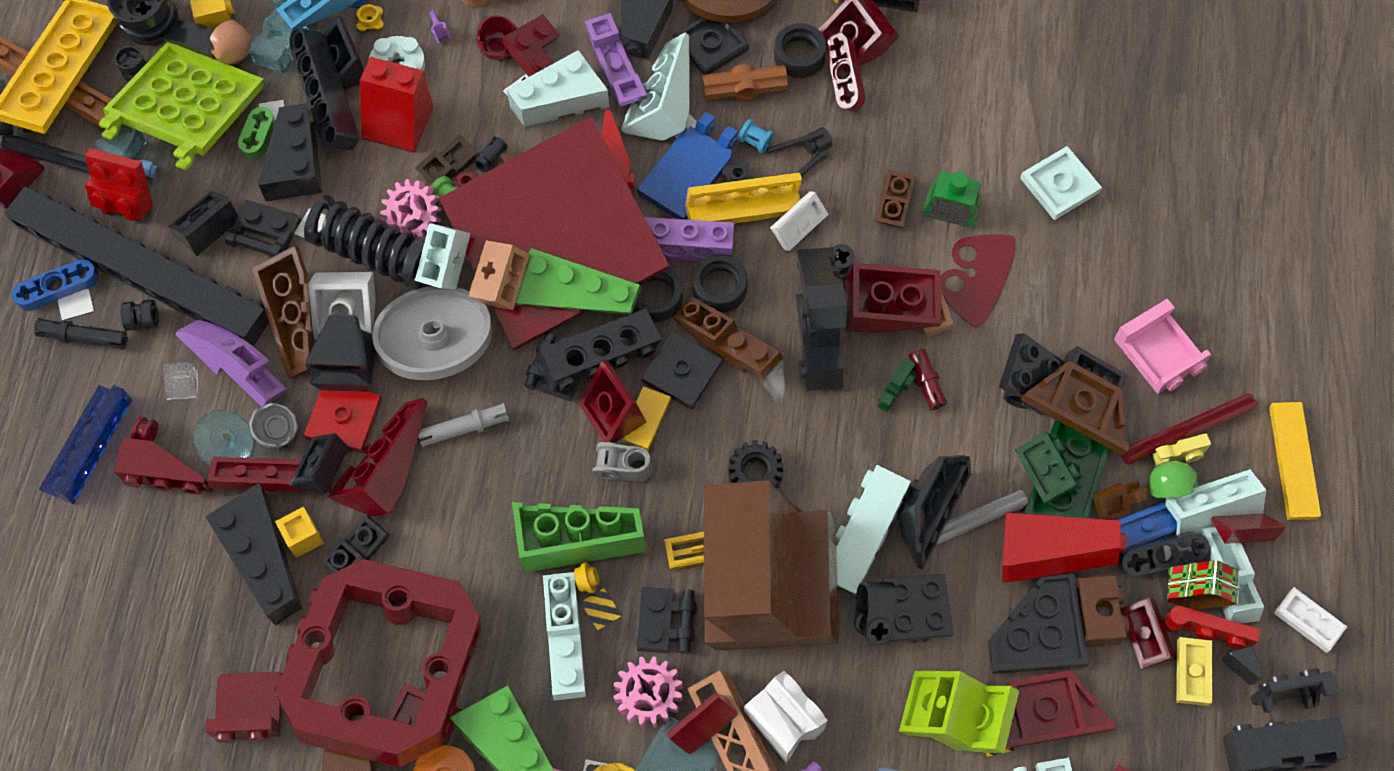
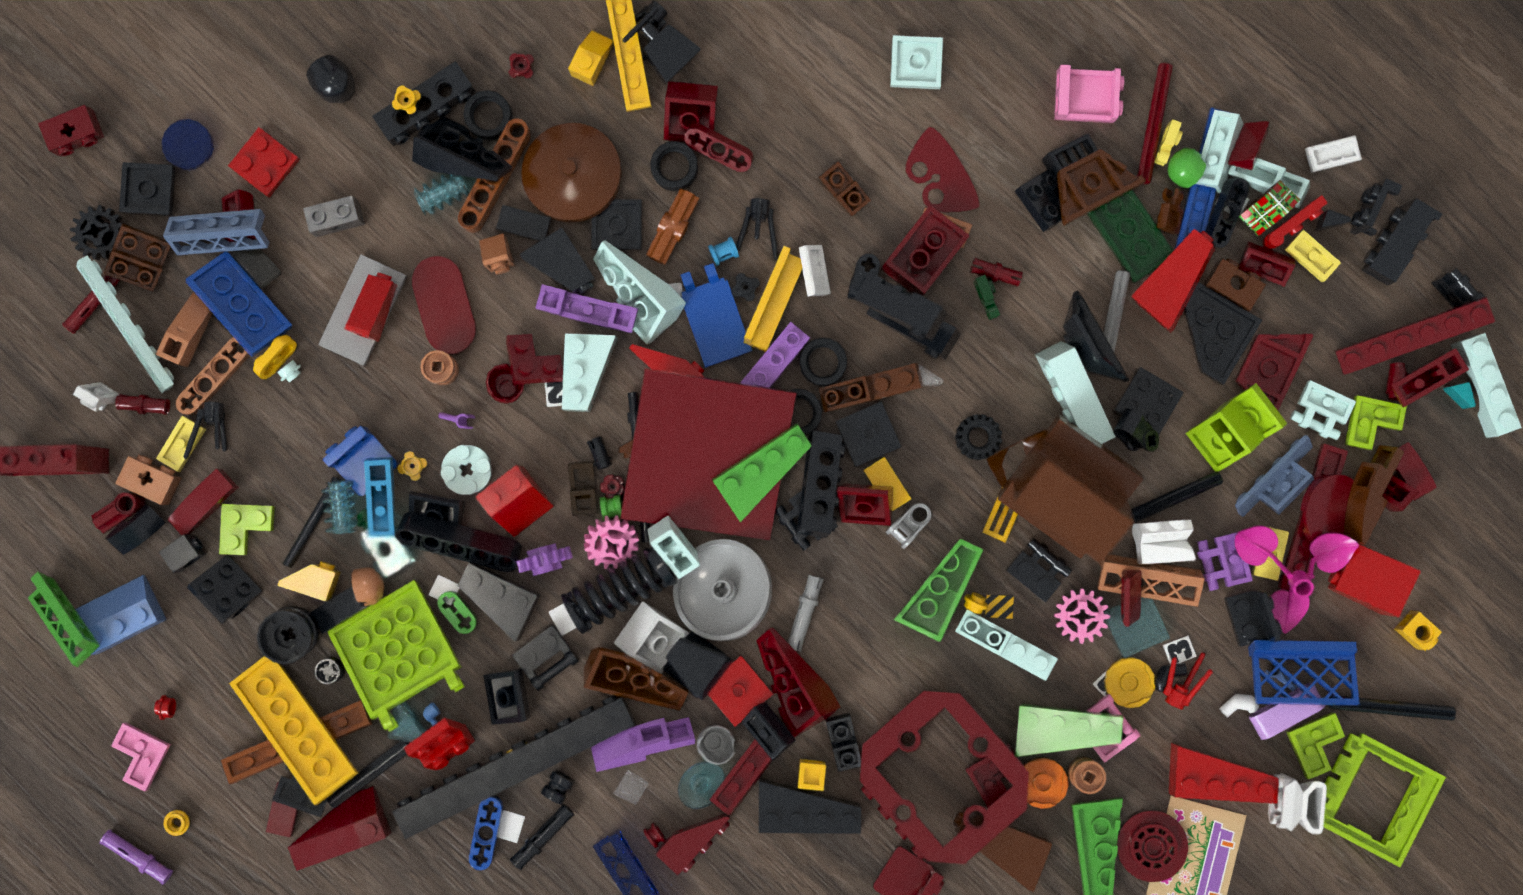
camera: 55 degrees left, 20 degrees up
(354, 162) = (544, 559): none -> medium lavender gear
(499, 275) = (718, 517): nougat brick -> none
(832, 700) = (1176, 496): none -> black axle
(954, 199) = (877, 151): green torso -> none
(1048, 467) = (1120, 241): dark green bracket -> none
(1294, 461) = (1225, 72): yellow tile -> none

